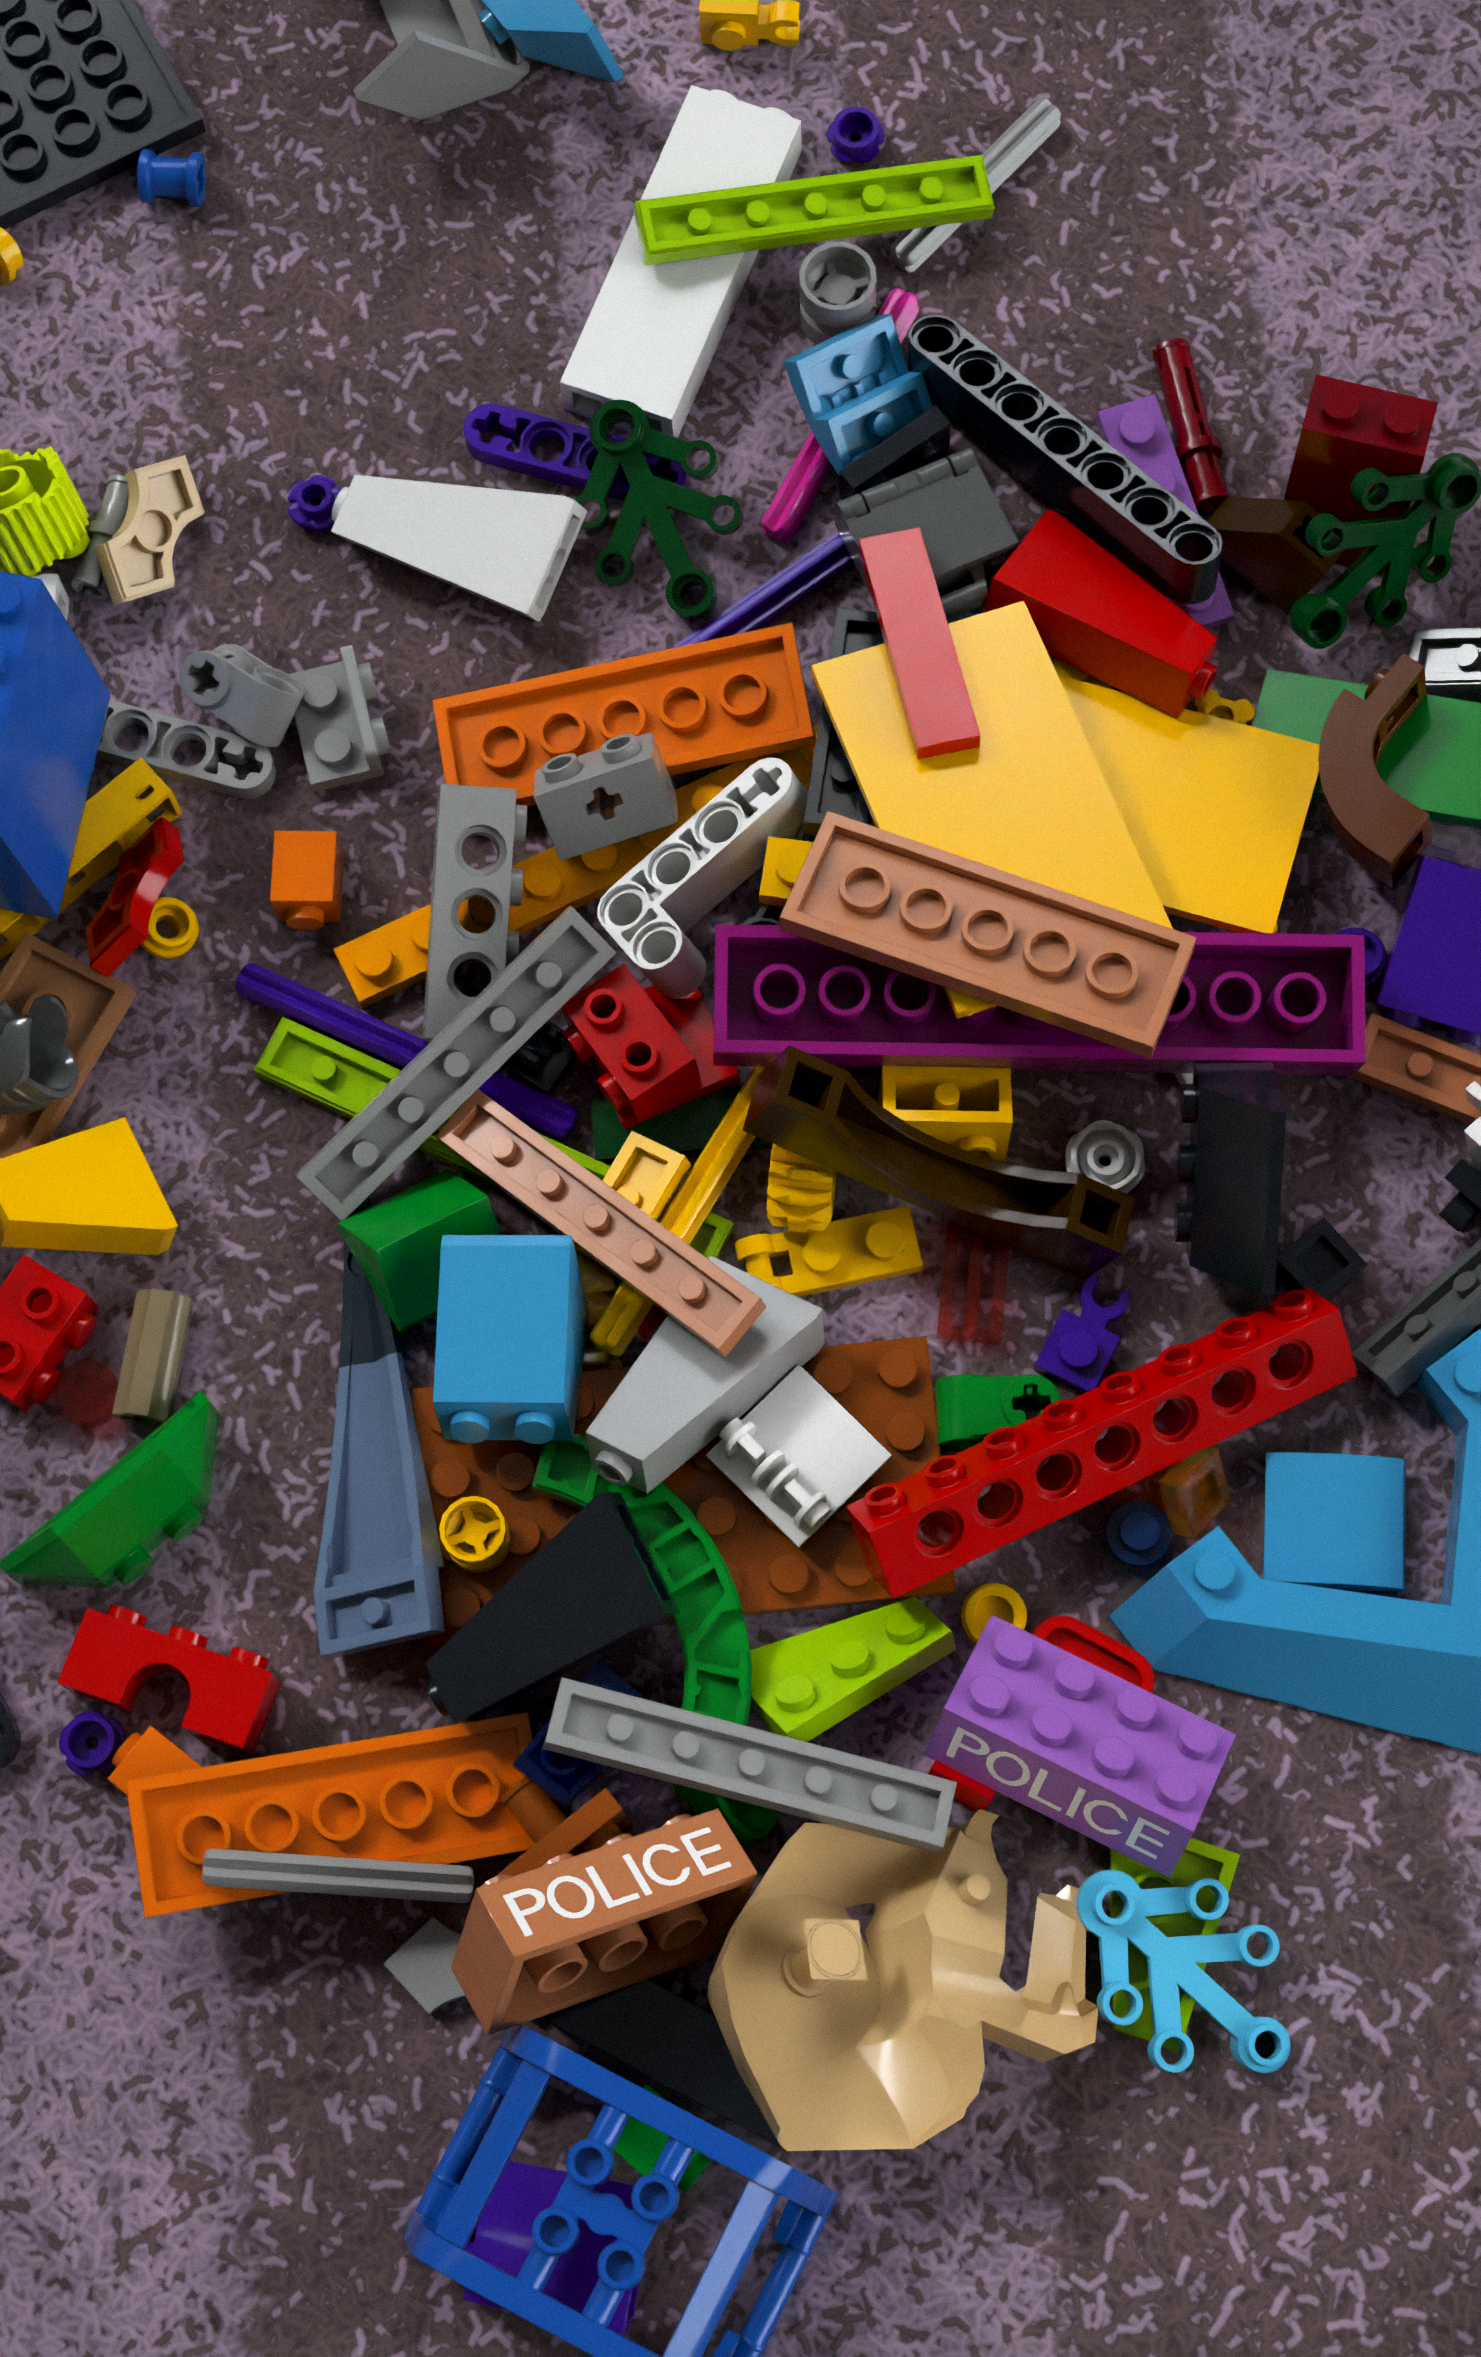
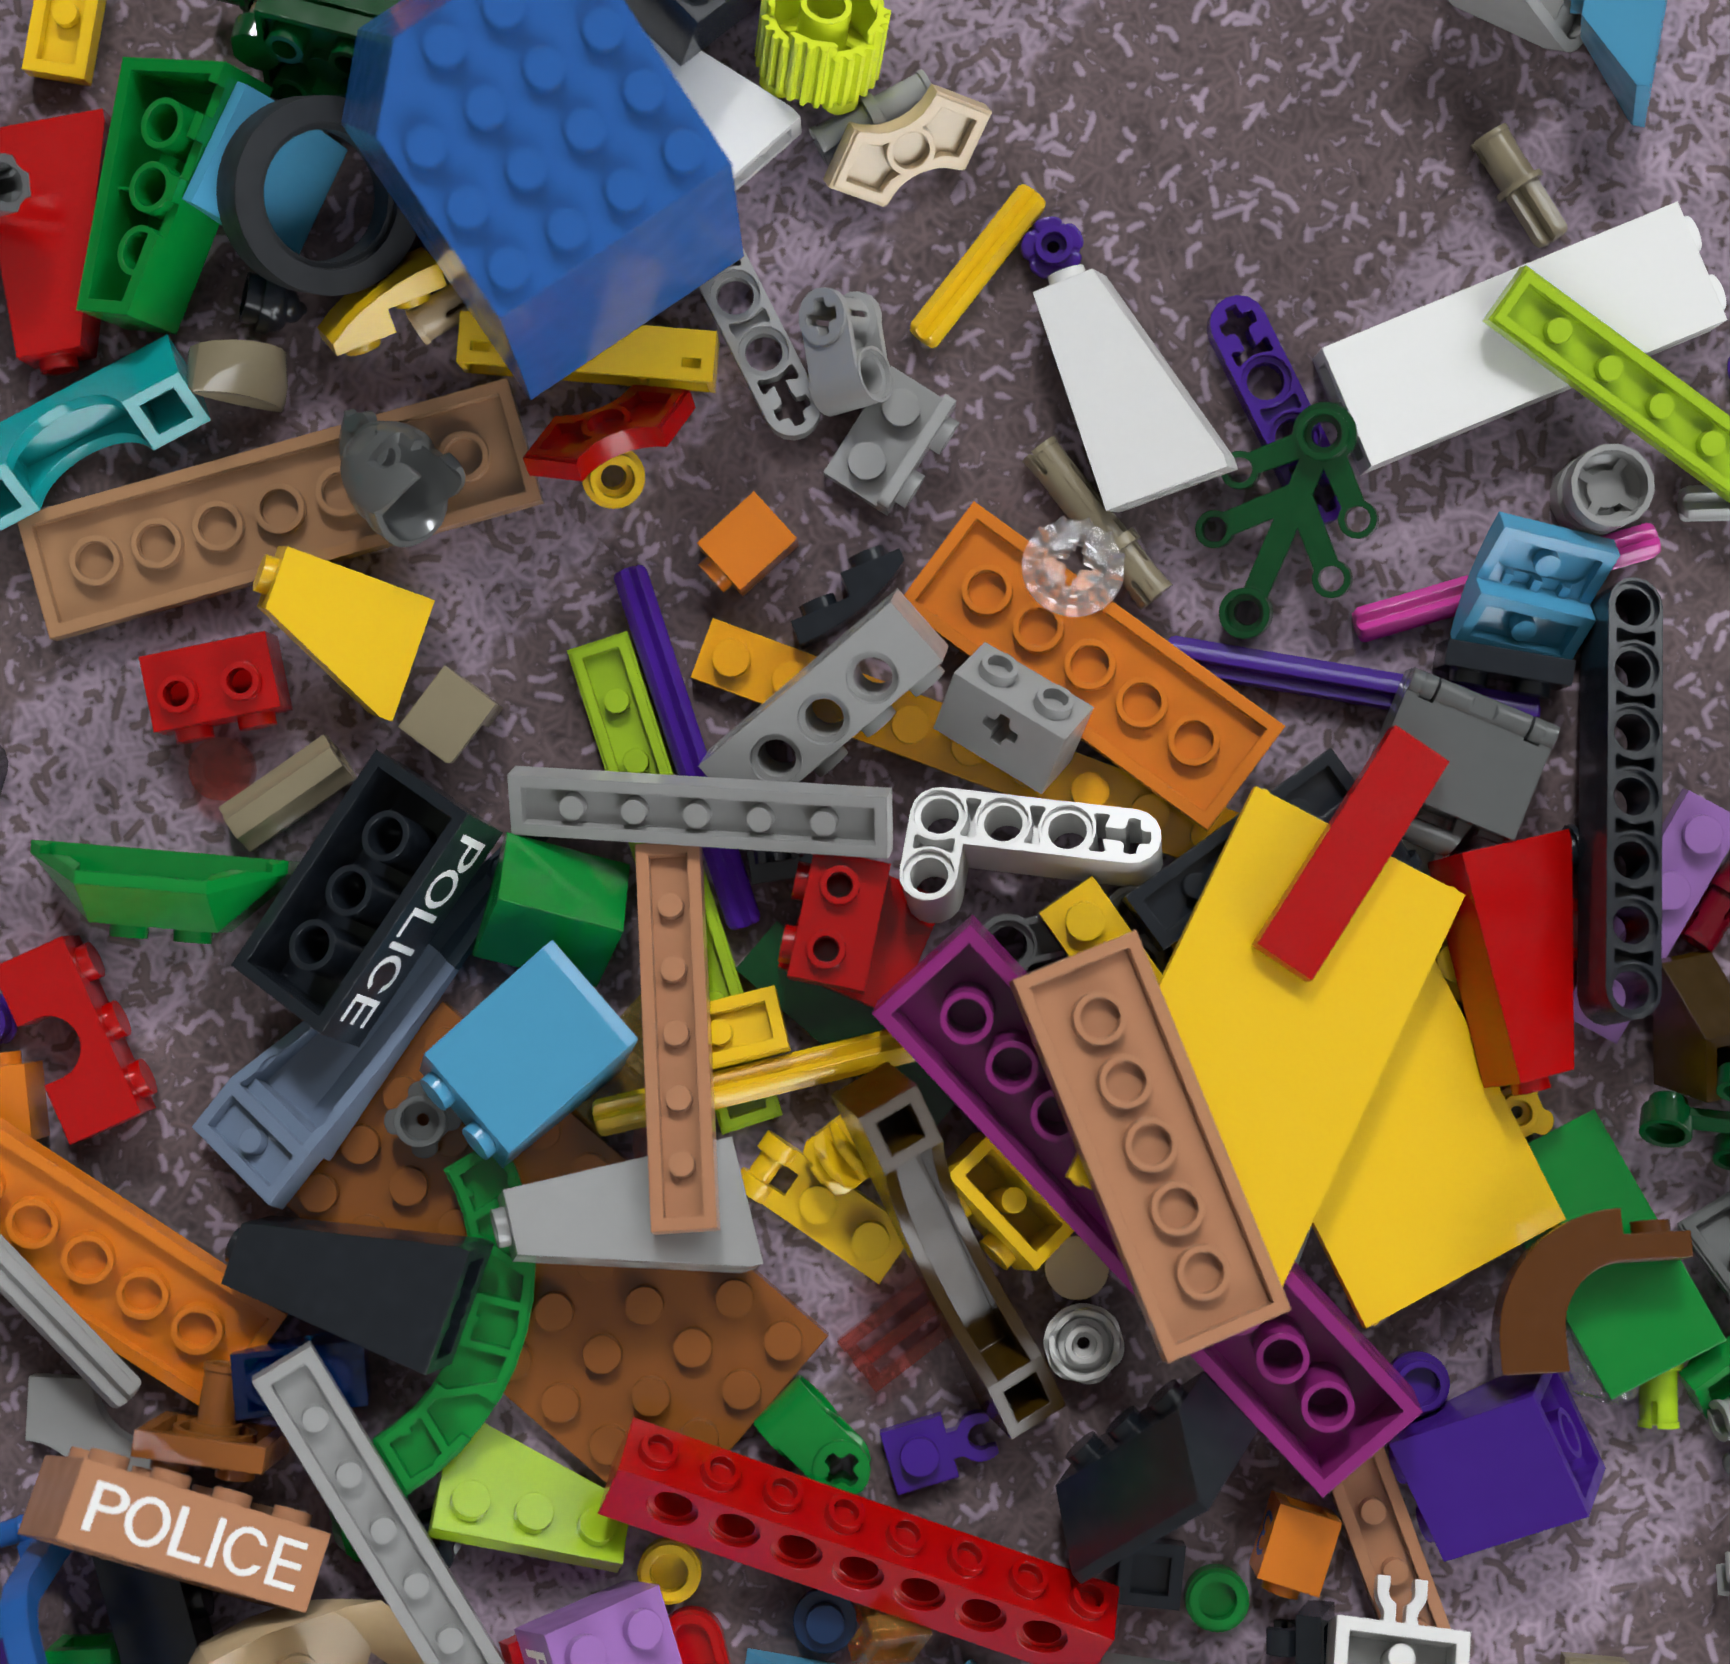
camera: 40 degrees right, 15 degrees up
(214, 1184) = (449, 715): none -> dark tan panel
(277, 562) = (977, 266): none -> yellow axle
(283, 1358) = (366, 900): none -> black brick
(413, 828) = (864, 583): none -> black slope
(470, 1456) = (421, 1138): none -> dark grey plate
(470, 1522) = (359, 1168): yellow wheel -> none
(529, 687) = (1047, 577): none -> clear gear
(535, 637) = (1081, 500): none -> dark tan pin
(581, 178) = (1520, 186): none -> dark tan axle
(798, 1455) = (647, 1336): white hinge -> none
(1044, 1118) = (1075, 1270): none -> tan tile
(1386, 1238) = (1216, 1598): none -> green tile
(1395, 1142) = (1294, 1546): none -> orange brick

